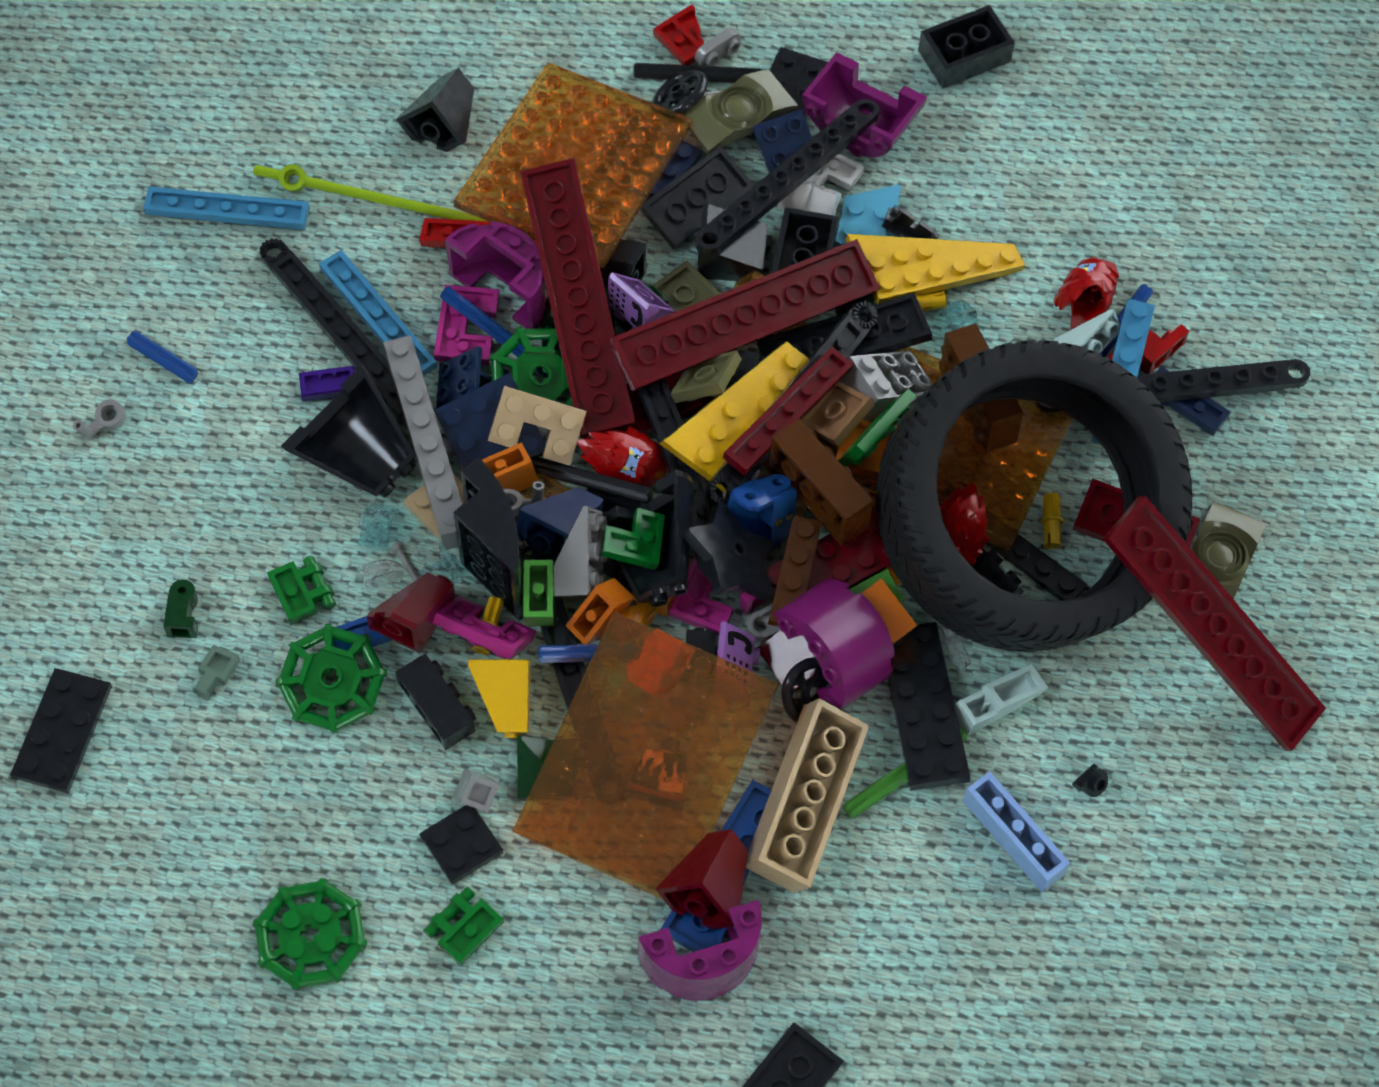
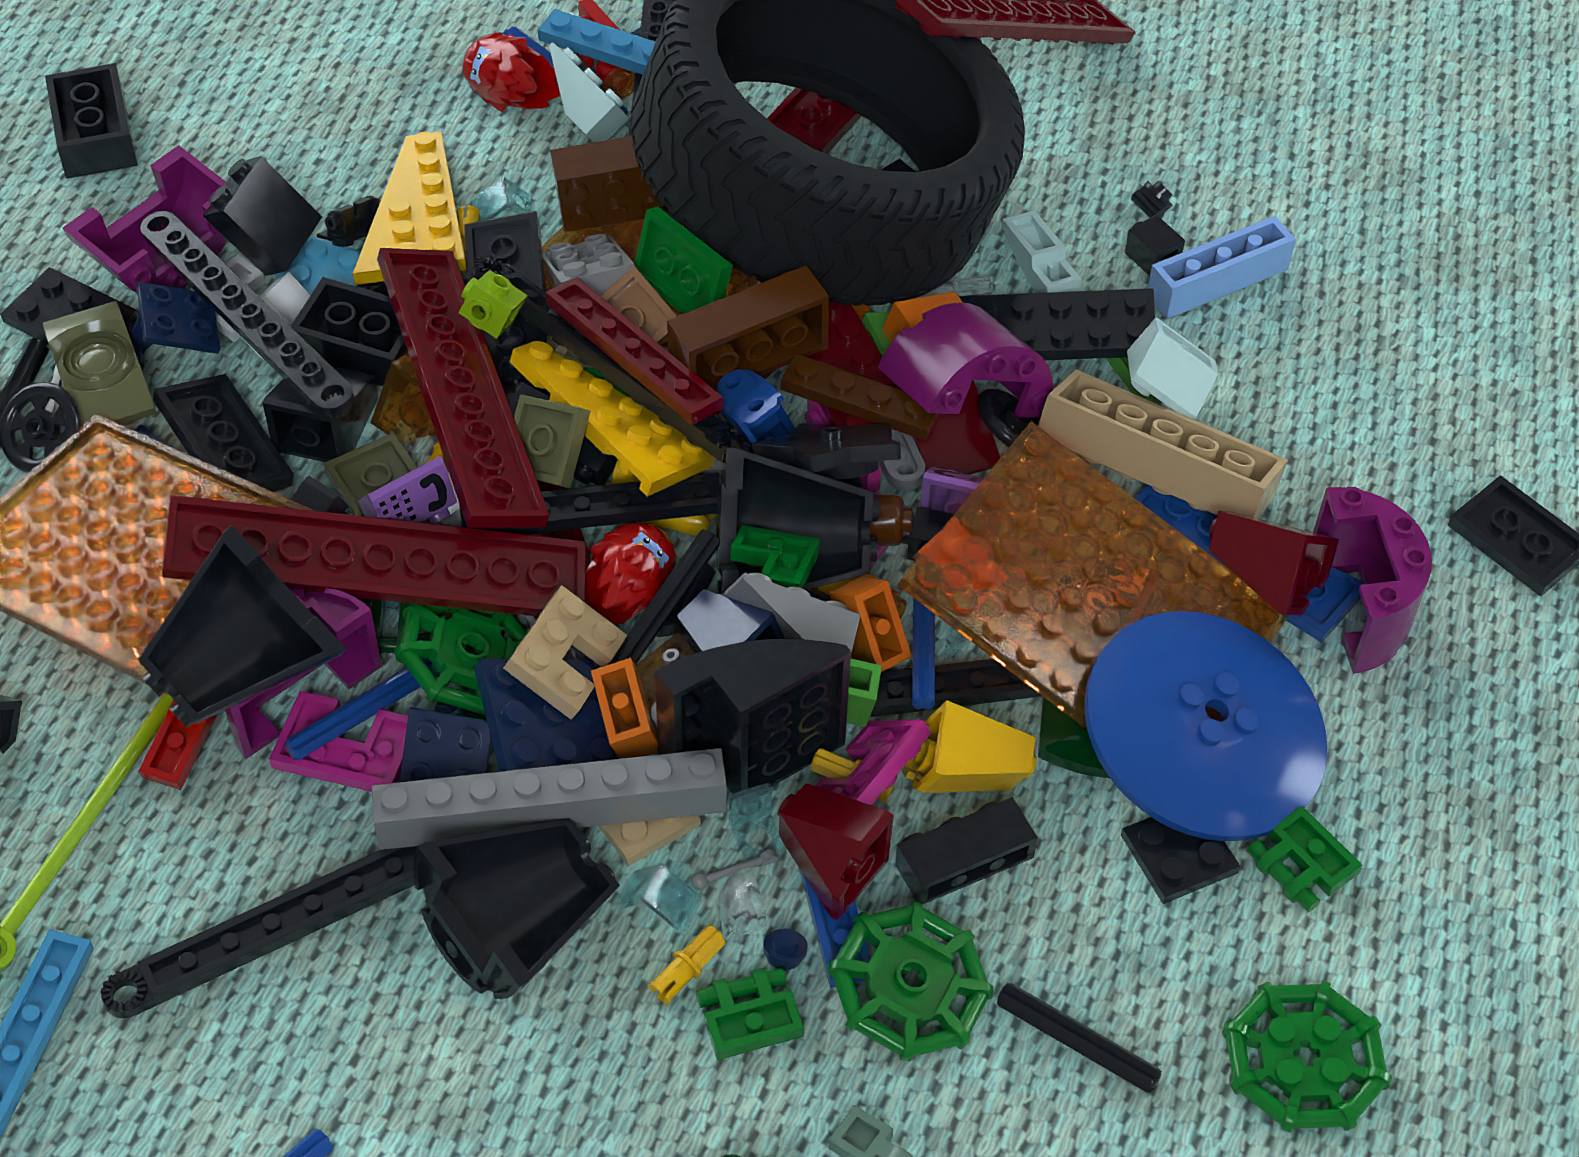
camera: 80 degrees left, 10 degrees down
(307, 789) = (1079, 1037): none -> black axle
(323, 383) = (395, 939): dark purple plate -> none
(330, 547) = (687, 964): none -> yellow axle
(349, 602) = (785, 948): none -> dark blue plate
(371, 305) = (270, 867): dark azure plate -> none
(476, 790) = (1106, 818): light grey panel -> none
(482, 226) = (233, 635): none -> black cone
(562, 889) = (1179, 763): none -> blue dish
(693, 608) = (892, 521): none -> reddish brown head
(817, 316) = (491, 303): none -> lime brick
(880, 164) = (262, 215): none -> black brick
(880, 794) = (1171, 369): none -> light aqua slope
(1033, 781) = (1152, 242): none -> black brick

